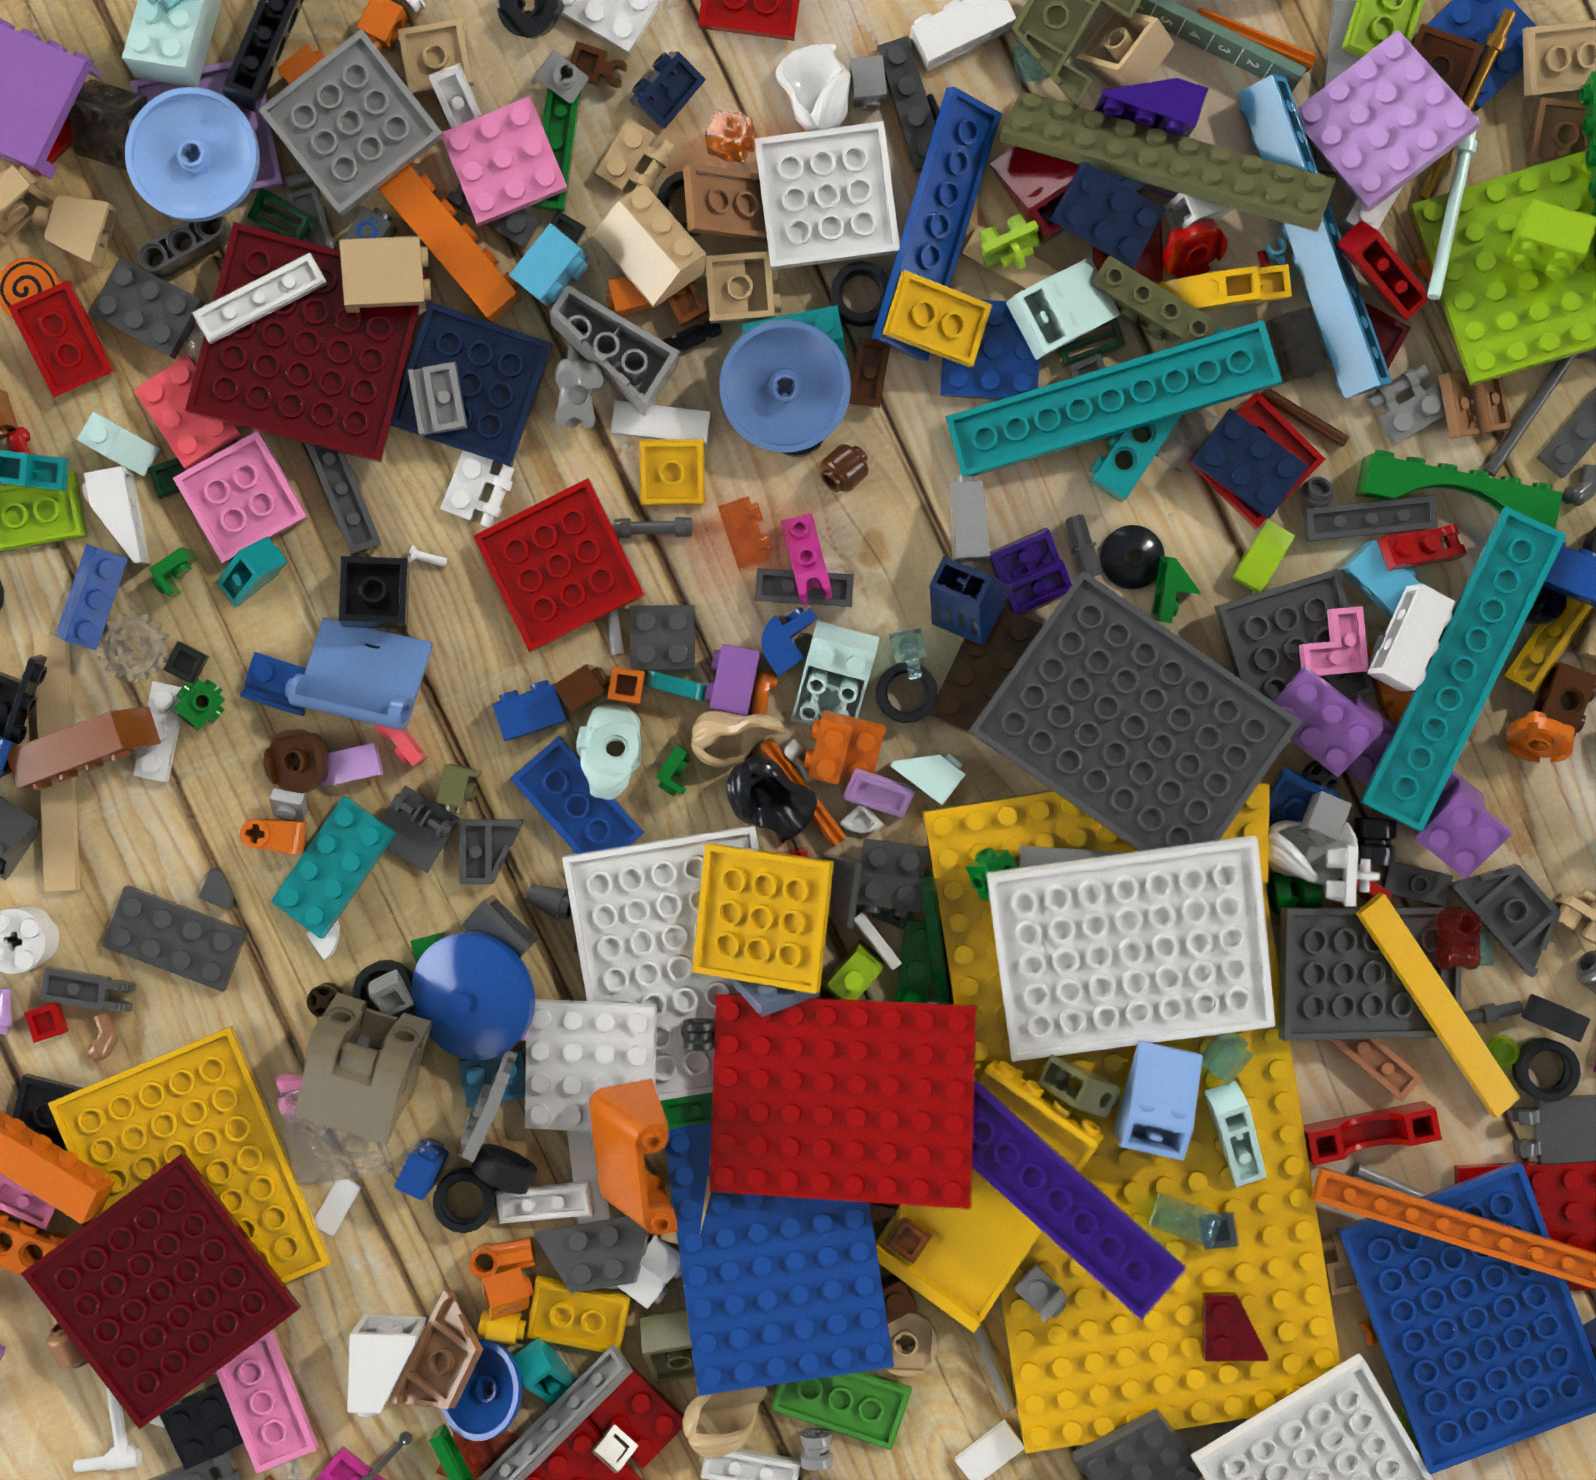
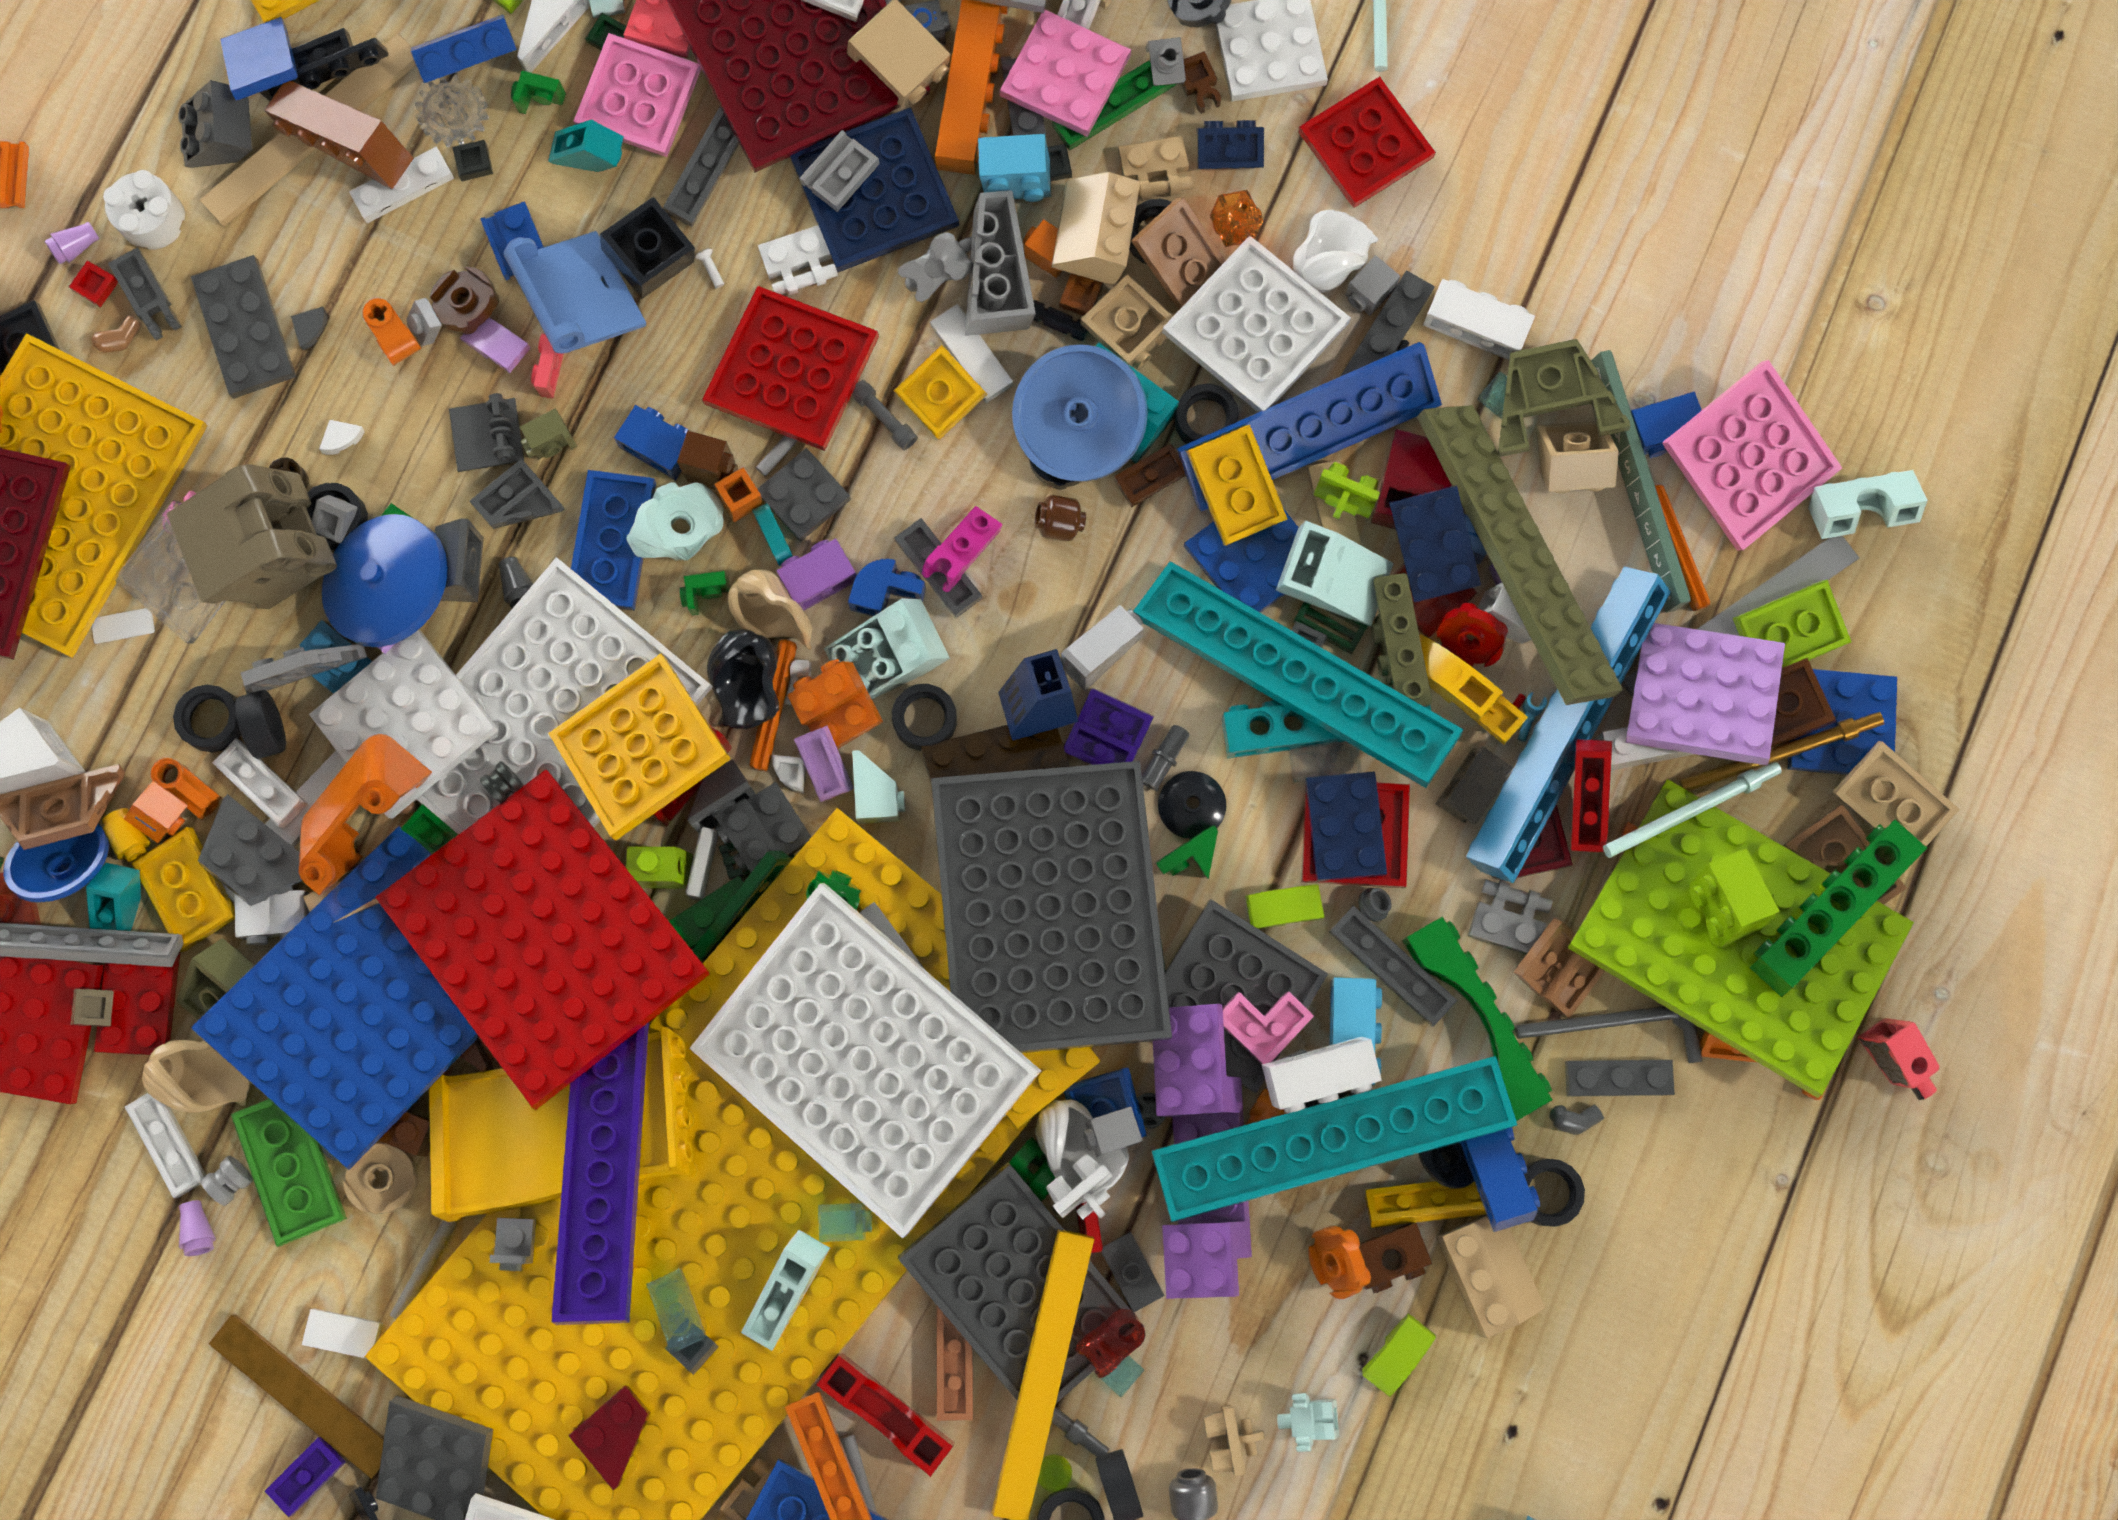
camera: 45 degrees right, 10 degrees down
(188, 709) = (436, 197): green brick -> none
(333, 867) = (402, 396): teal plate -> none
(422, 1168) = (207, 659): blue brick -> none
(744, 534) = (939, 485): clear orange brick -> none
(763, 681) = (824, 603): orange arm -> none
(770, 999) = (577, 808): sand blue wing -> none
(909, 647) = (959, 687): clear light blue plate -> none
(909, 1240) = (470, 1100): dark orange tile -> none
(1093, 1093) = (714, 1120): olive torso -> none
(1159, 1101) = (758, 1195): light blue slope -> none
(1161, 104) = (1557, 511): dark purple slope -> none
(1305, 417) = (1425, 843): reddish brown bar -> none
(1375, 840) = (1134, 1200): black wheel -> none
(1421, 547) = (1405, 1025): red plate -> none
(1512, 911) = (1178, 1372): dark grey wing -> none

